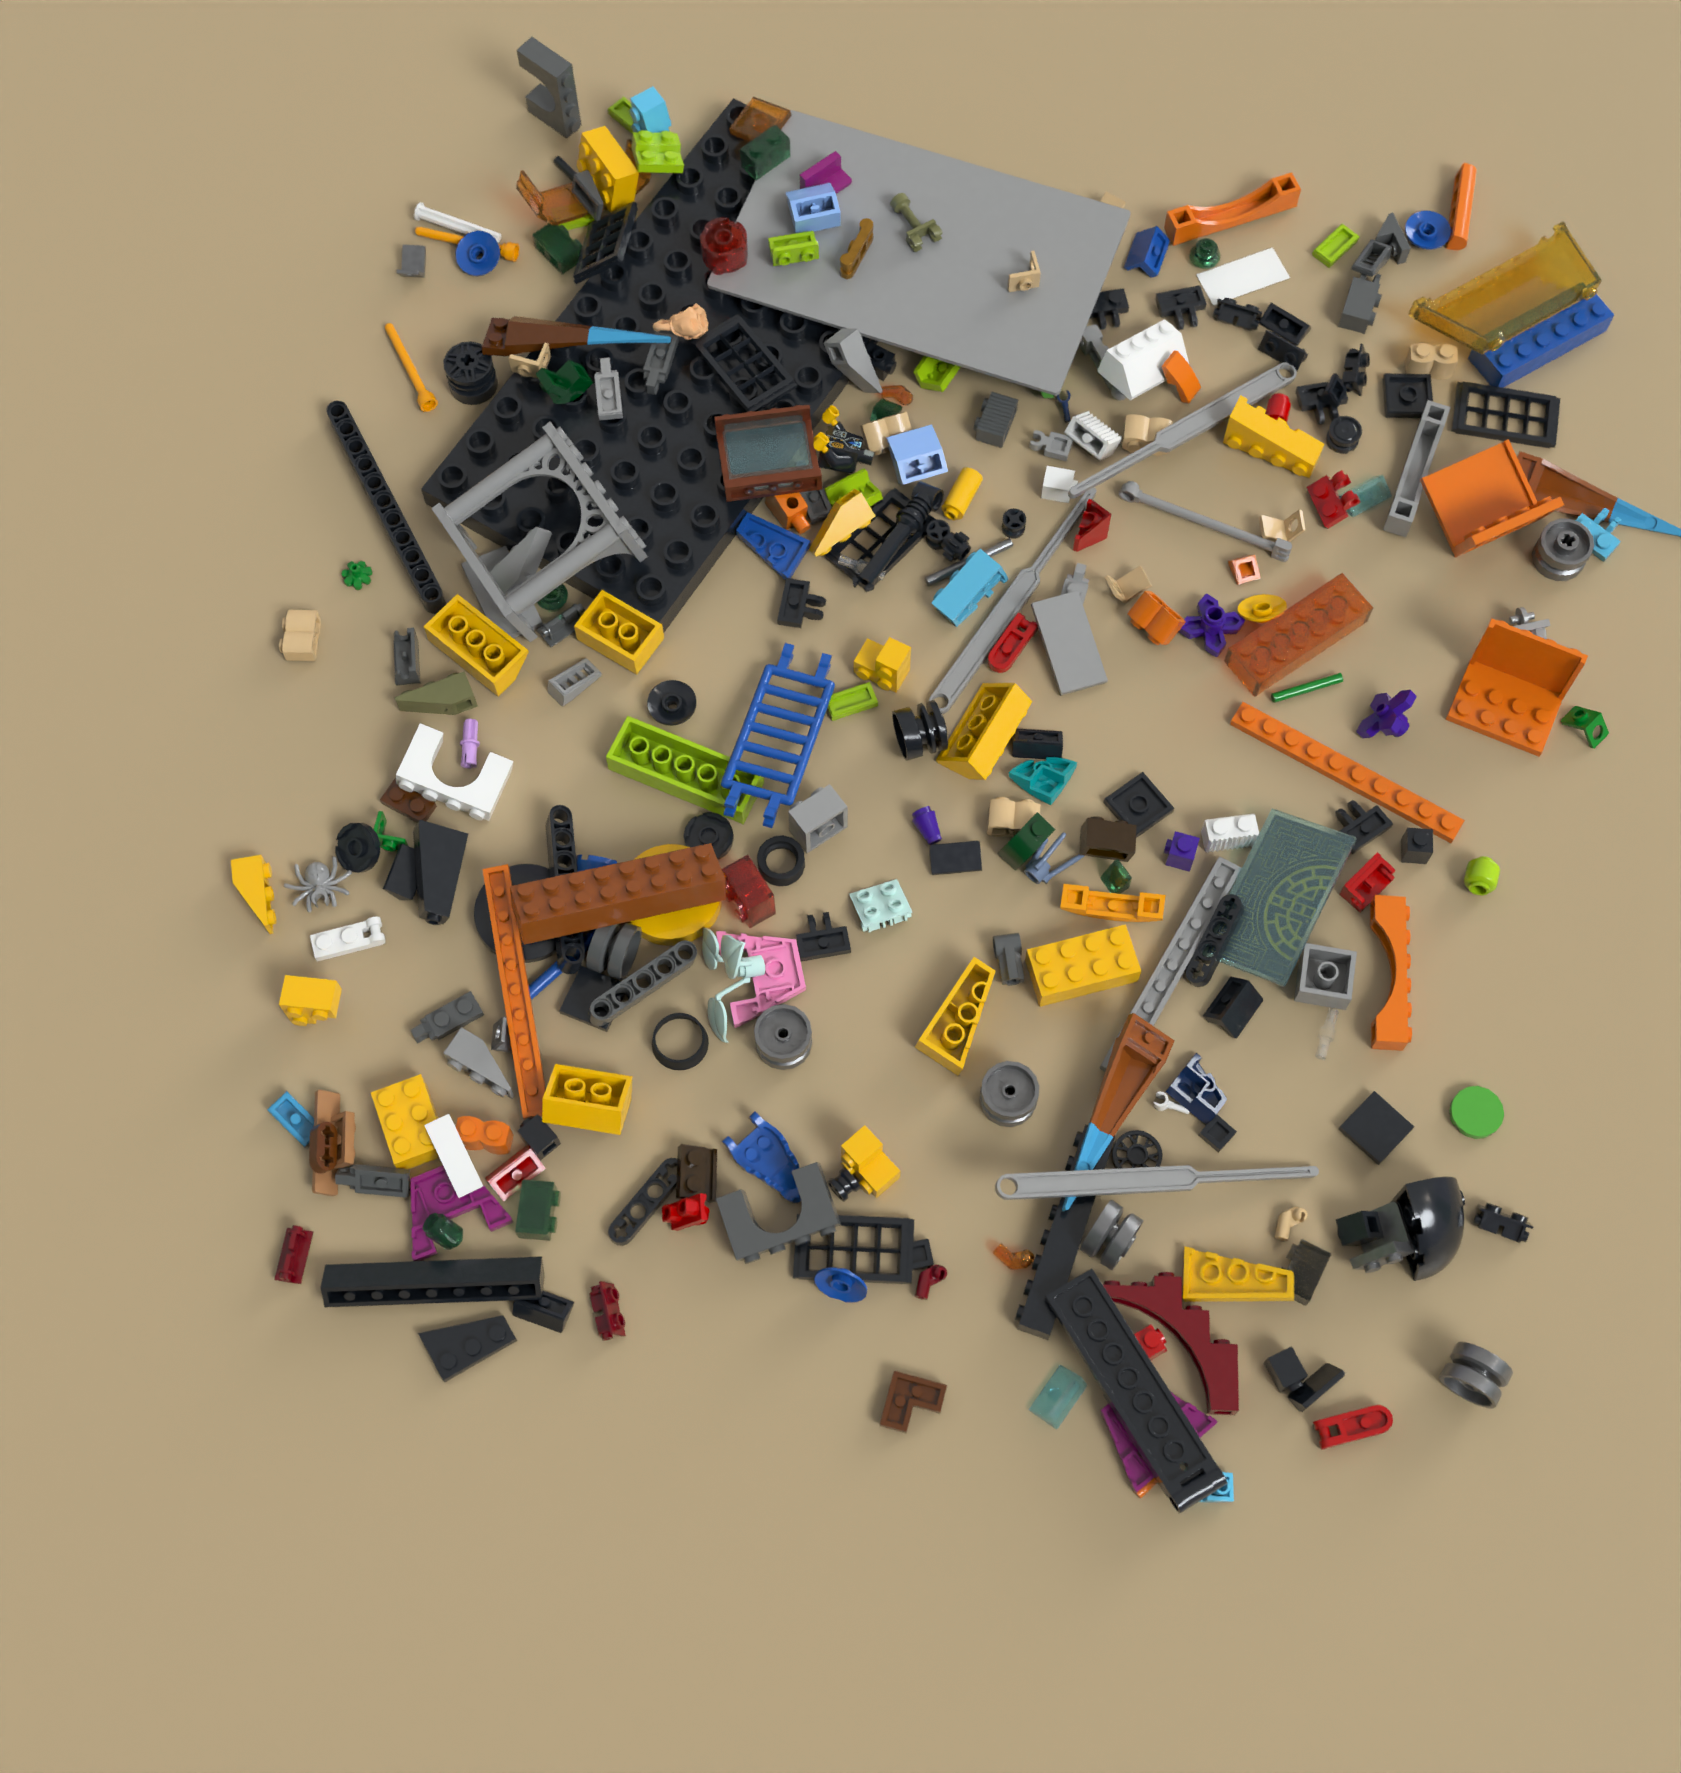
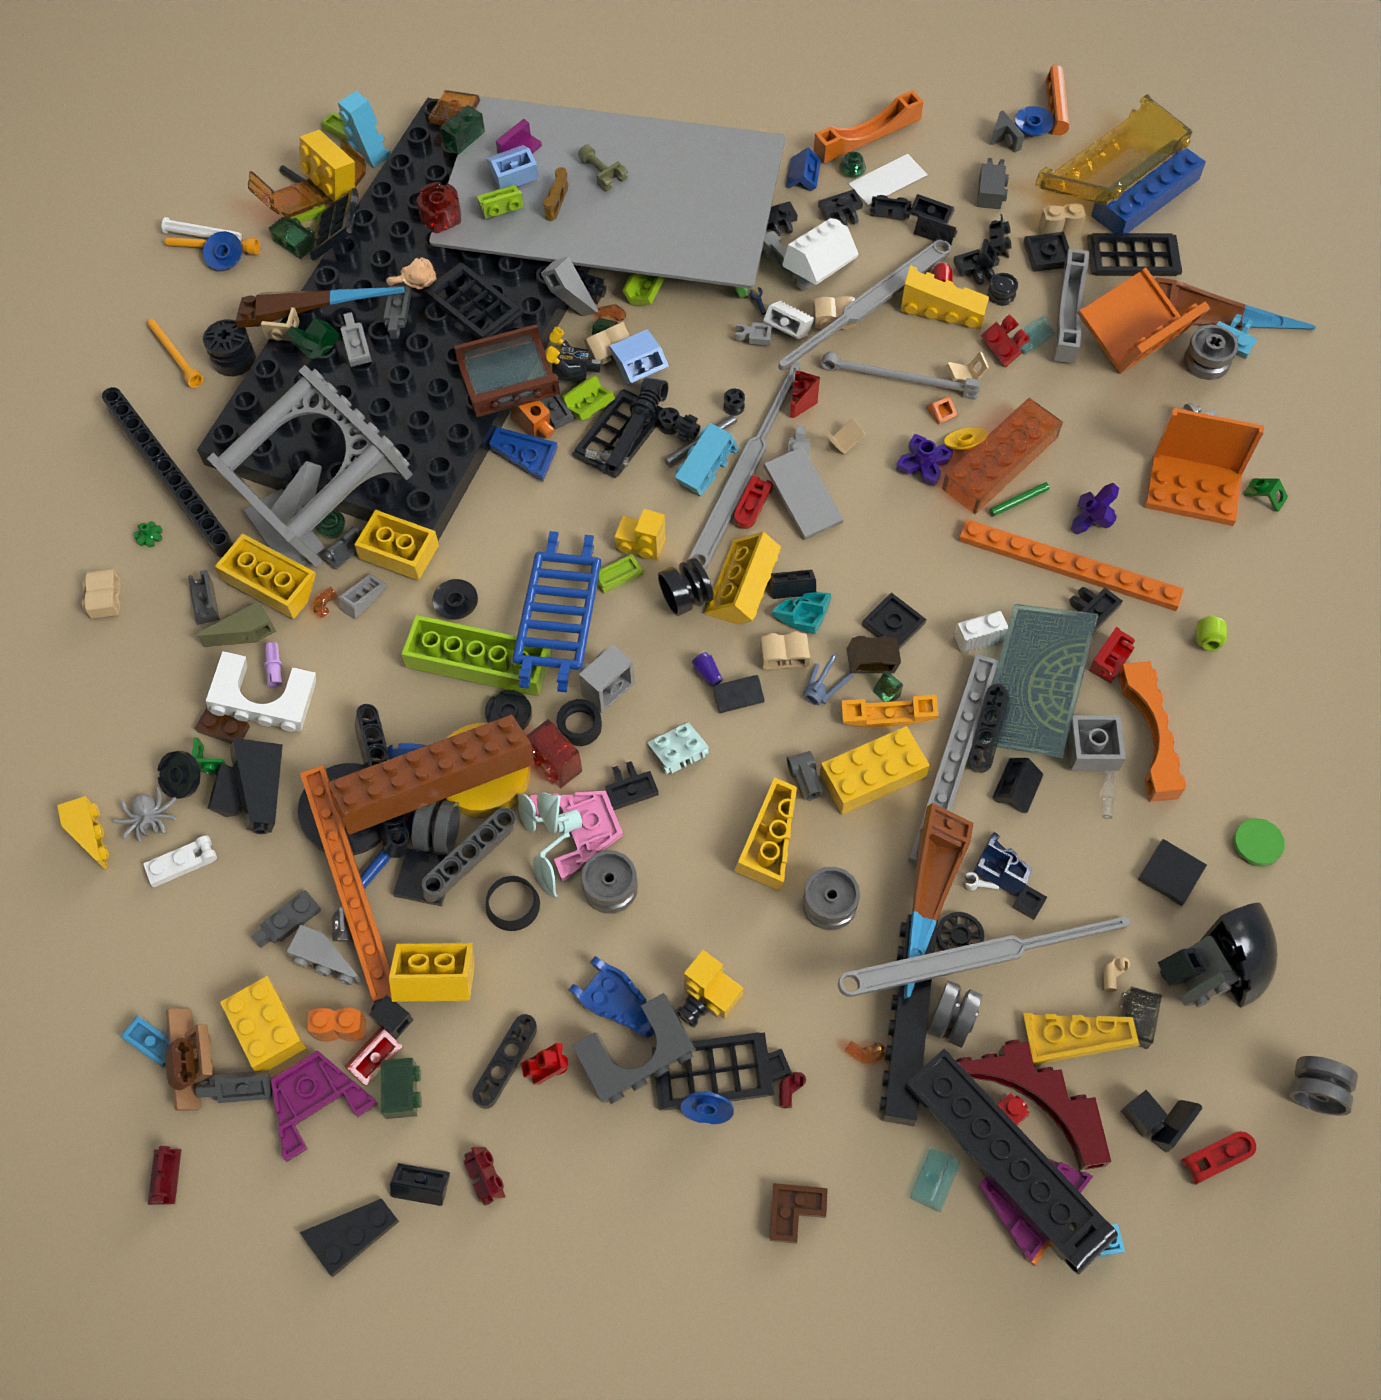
camera: 10 degrees left, 5 degrees down
(309, 999) = (148, 923): yellow brick -> none
(413, 261) = (165, 265): flat silver bracket -> none
(432, 1282) = (305, 1178): black brick -> none
(443, 1231) = (310, 1125): clear green brick -> none
(453, 1155) = (309, 1049): white tile -> none
(529, 682) = (321, 600): none -> clear orange arm
(557, 101) = (278, 126): dark grey arch -> none
(587, 193) = (312, 188): dark grey slope -> none
(657, 152) = (368, 144): lime plate -> none
(696, 1172) = (548, 1023): dark brown plate -> none
(794, 603) = (552, 497): black hinge -> none
(844, 518) = (583, 418): yellow slope -> none
(961, 493) = (683, 384): yellow brick -> none
(996, 419) = (701, 320): dark grey brick -> none
(1026, 841) = (800, 668): dark green brick -> none
(1027, 279) = (707, 197): tan bracket -> none
(1057, 484) = (766, 364): white brick -> none
(1156, 618) = (876, 460): orange brick -> none
(1181, 374) = (854, 259): orange slope -> none
(1181, 851) = (941, 654): dark purple brick -> none
(1335, 245) = (960, 144): lime tile -> none
(1372, 258) = (994, 147): dark grey slope -> none
(1417, 845) = (1148, 616): black brick -> none
(1513, 1225) = (1319, 940): black hinge -> none

